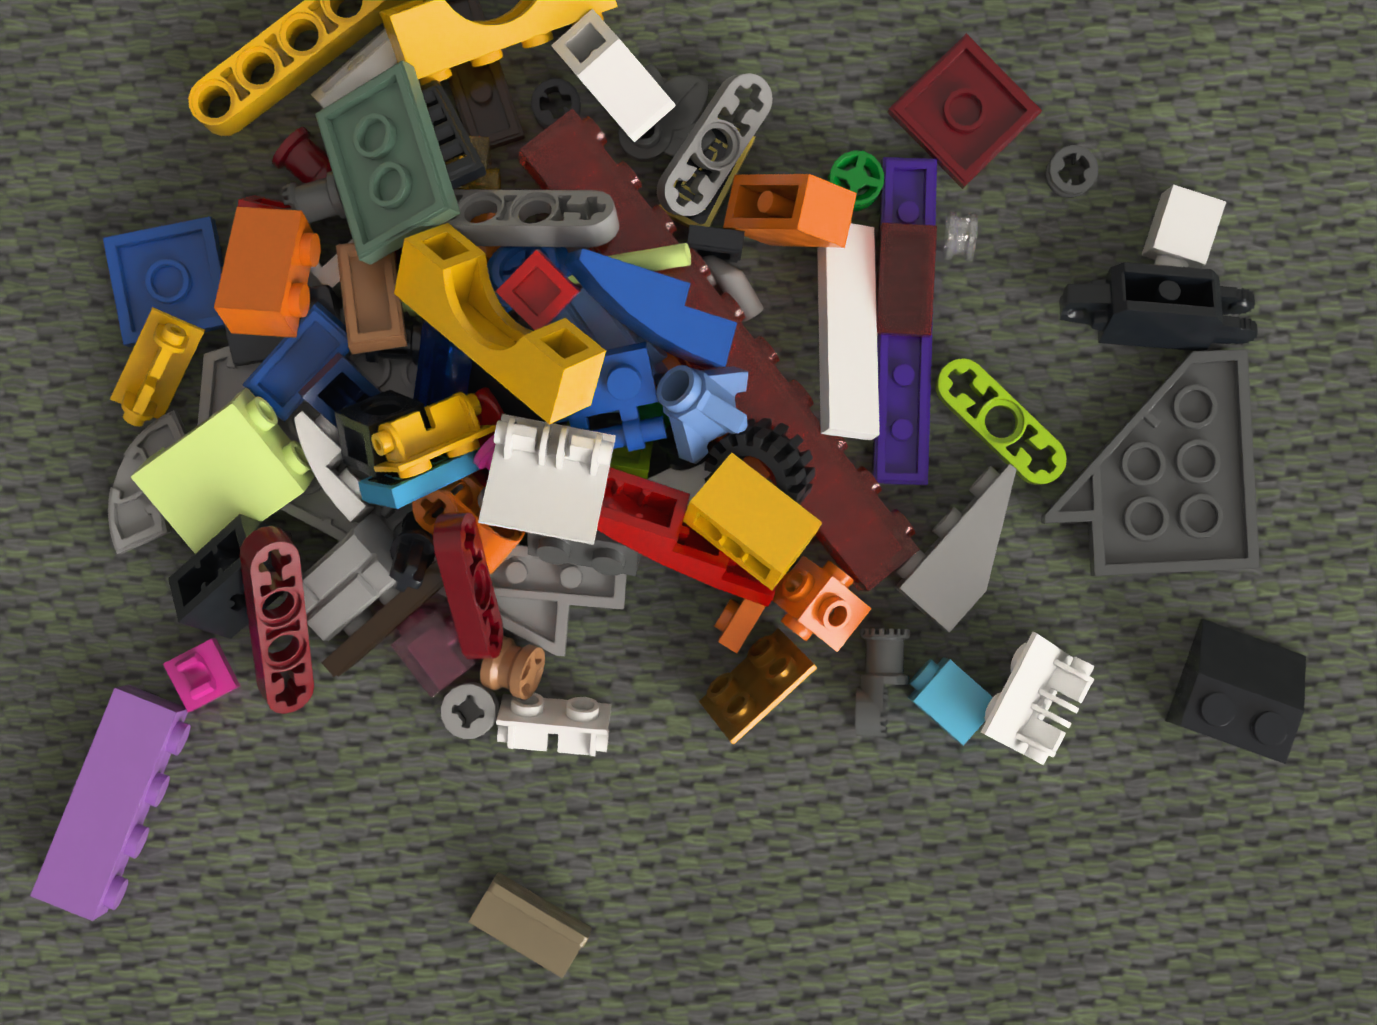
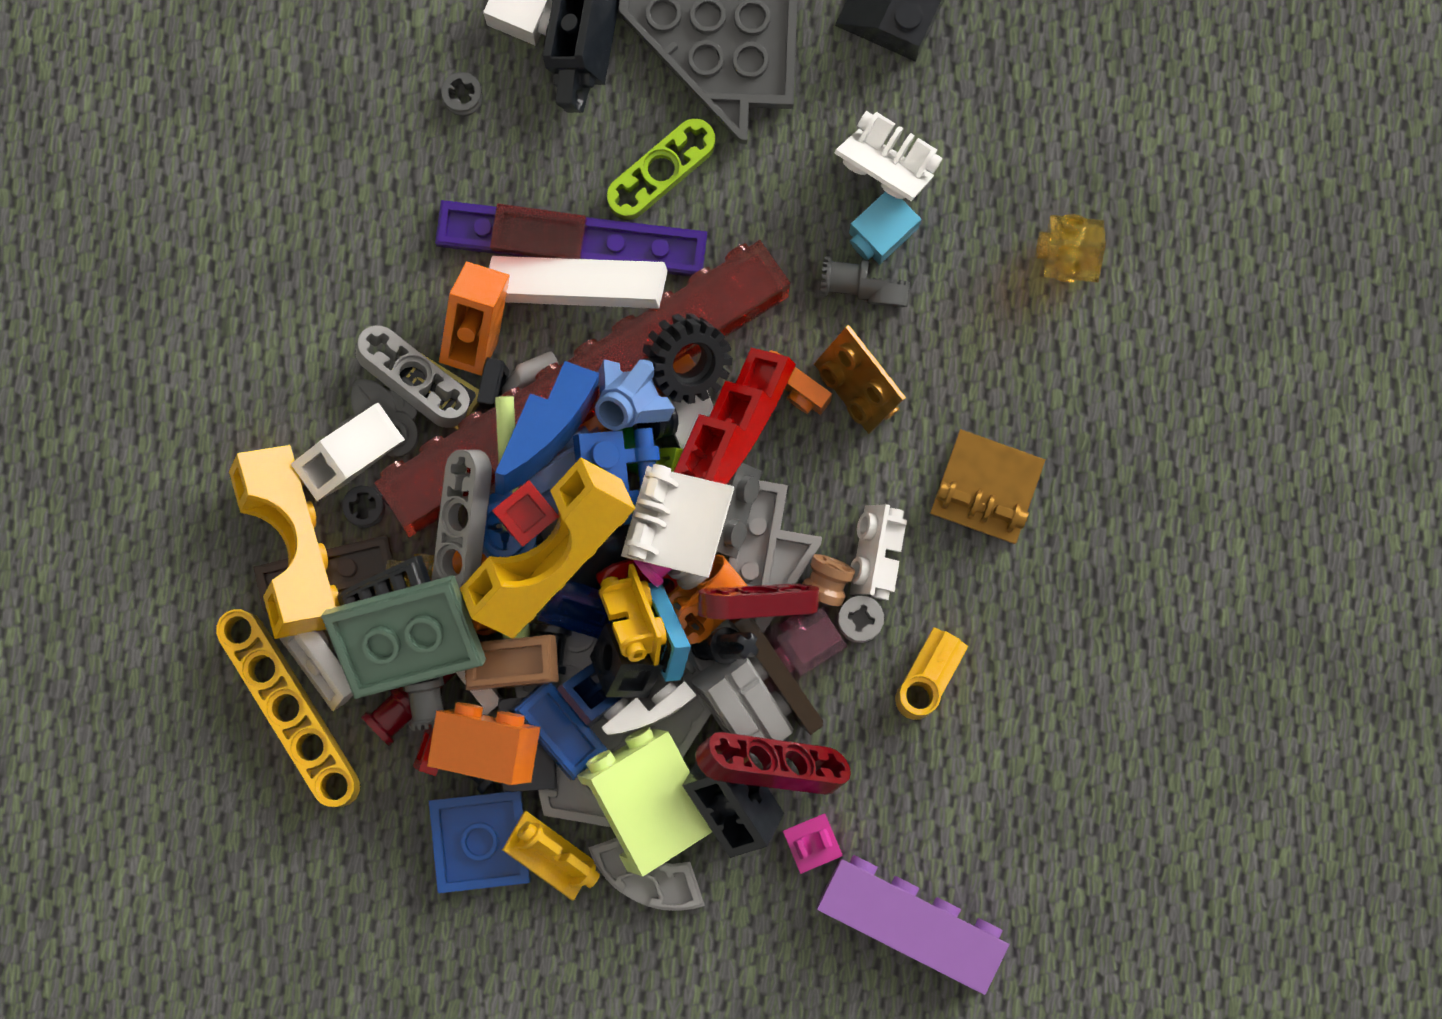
camera: 80 degrees left, 5 degrees down
(416, 803) = (931, 671): none -> yellow piece
(530, 925) = (1041, 586): dark tan panel -> none
(645, 851) = (988, 486): none -> pearl gold hinge
(751, 521) = (726, 364): yellow brick -> none
(811, 595) = (796, 323): orange brick -> none
(858, 170) = (447, 256): green wheel -> none
(945, 933) = (1072, 248): none -> clear yellow brick
(959, 563) = (772, 210): light grey slope -> none
(960, 235) = (506, 186): clear bush -> none
(964, 111) = (403, 175): dark red tile -> none

